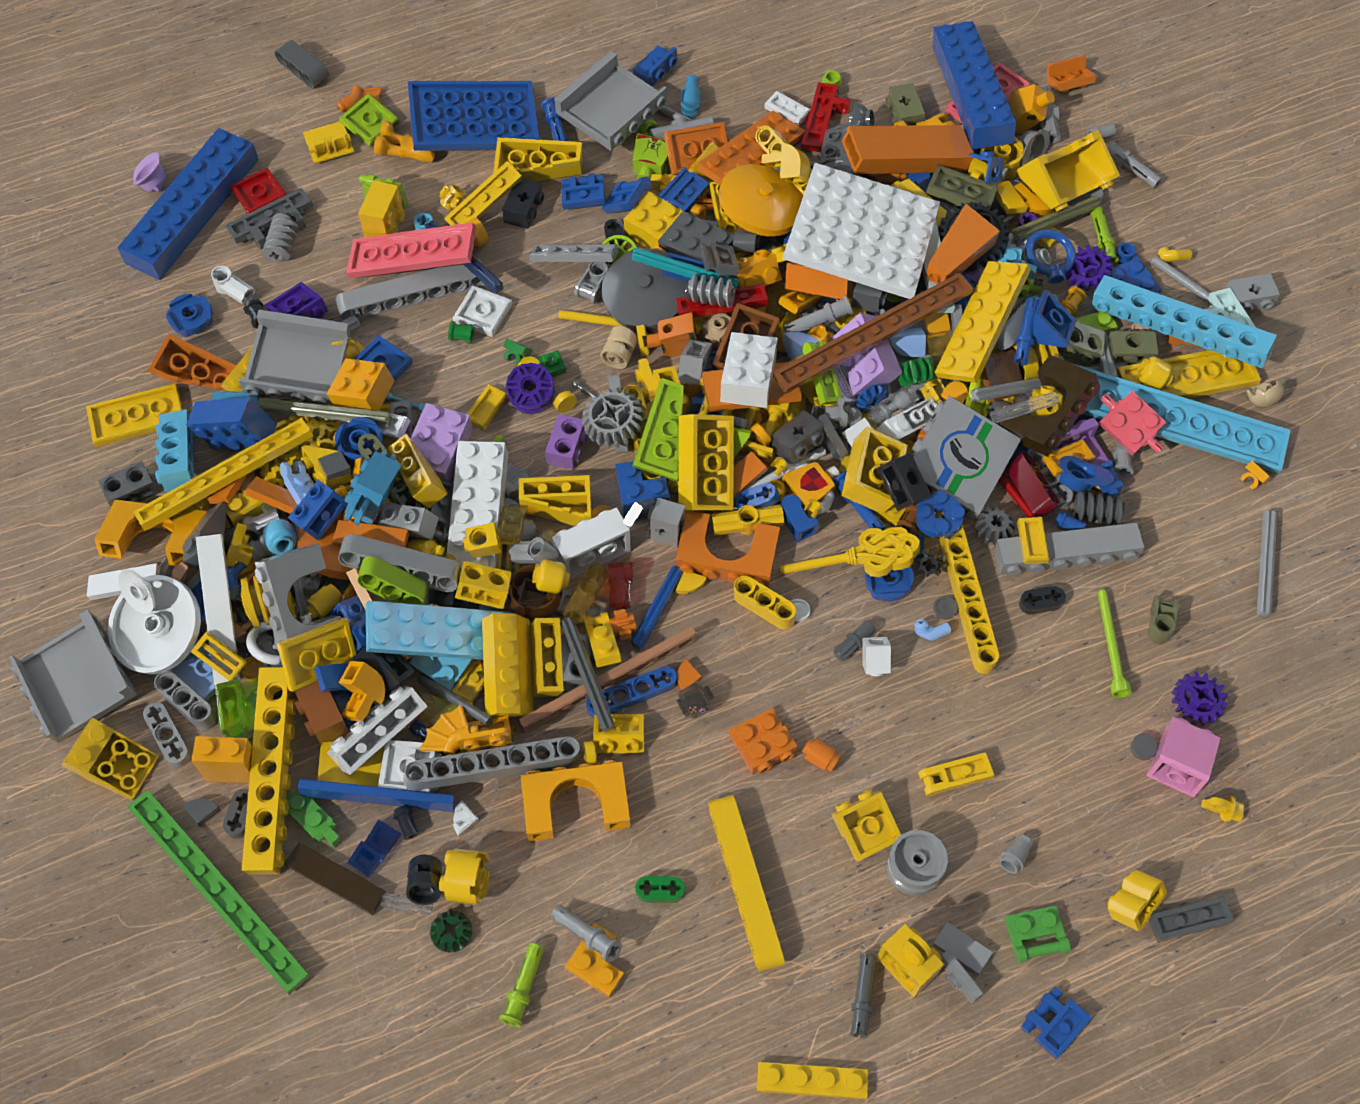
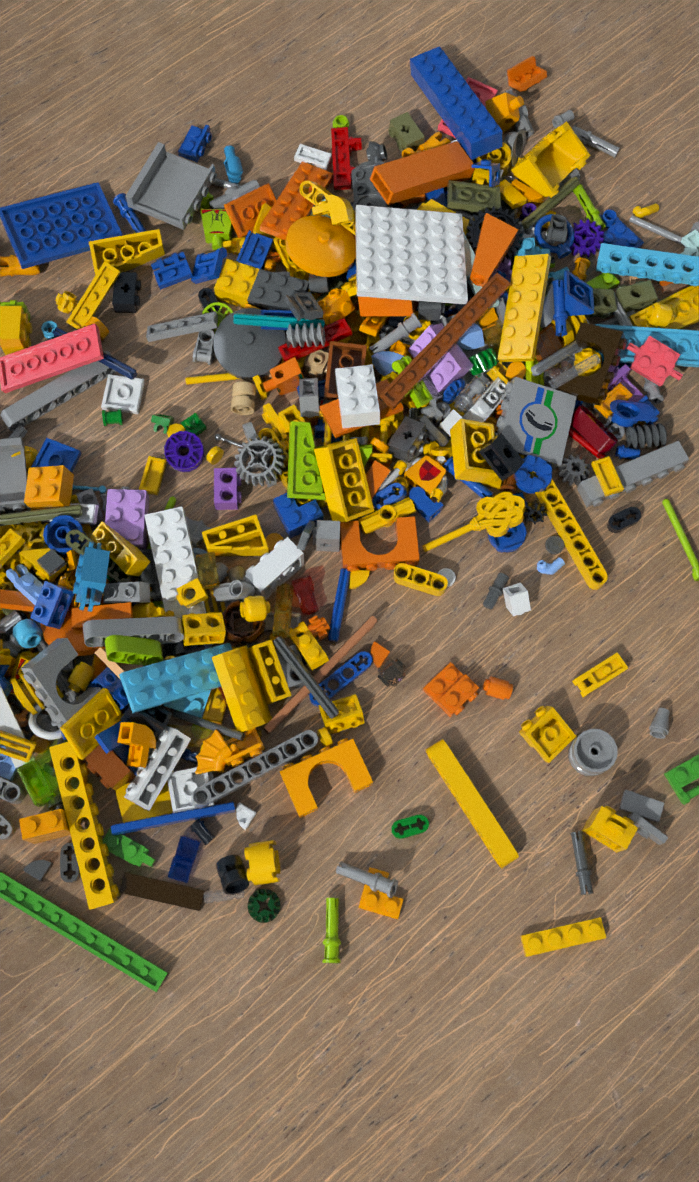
camera: 20 degrees left, 10 degrees up
(828, 459) = (434, 450): none -> yellow piece
(1053, 246) = (557, 229): none -> dark grey piece

